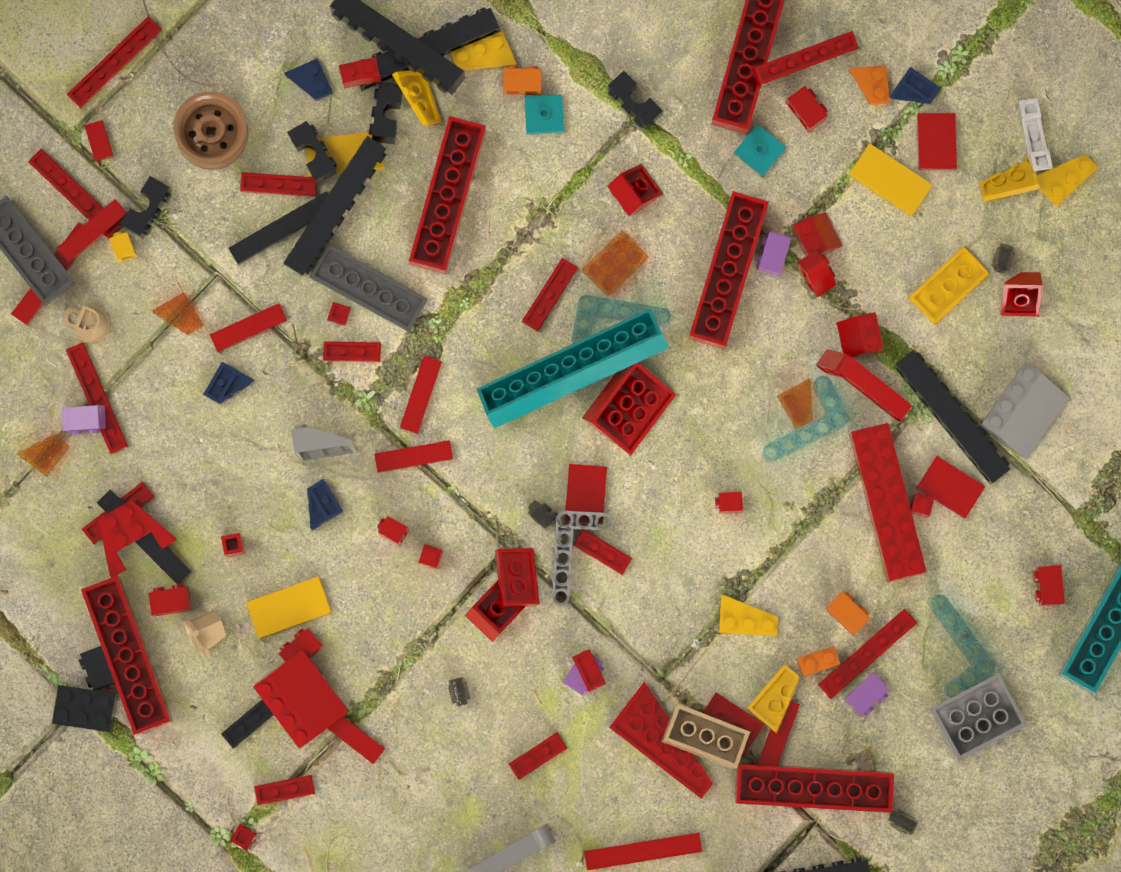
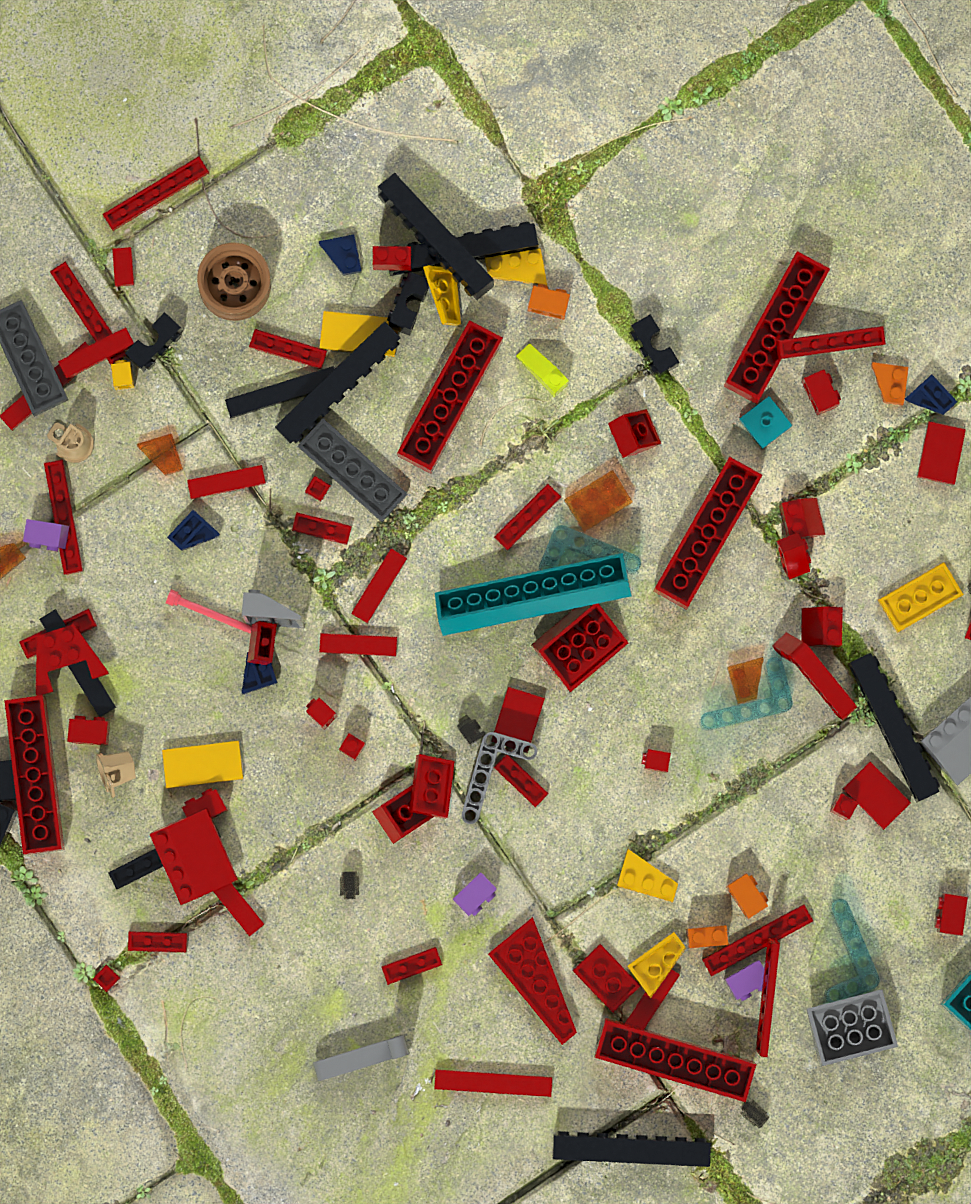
camera: 10 degrees right, 0 degrees up
(224, 452) = (176, 599): none -> coral piece
(233, 544) = (162, 691): red brick -> none
(304, 137) = (324, 309): black arch -> none
(319, 476) = (262, 643): none -> red brick
(532, 148) = (543, 370): none -> neon yellow slope
(544, 114) = (562, 339): teal plate -> none
(589, 670) = (480, 894): red tile -> none
(705, 736) = (580, 985): tan brick -> none
(774, 253) = (756, 527): medium lavender brick -> none
(887, 502) = (811, 796): red brick -> none
(890, 180) = (887, 480): yellow tile -> none
(890, 706) = (767, 997): none -> red tile

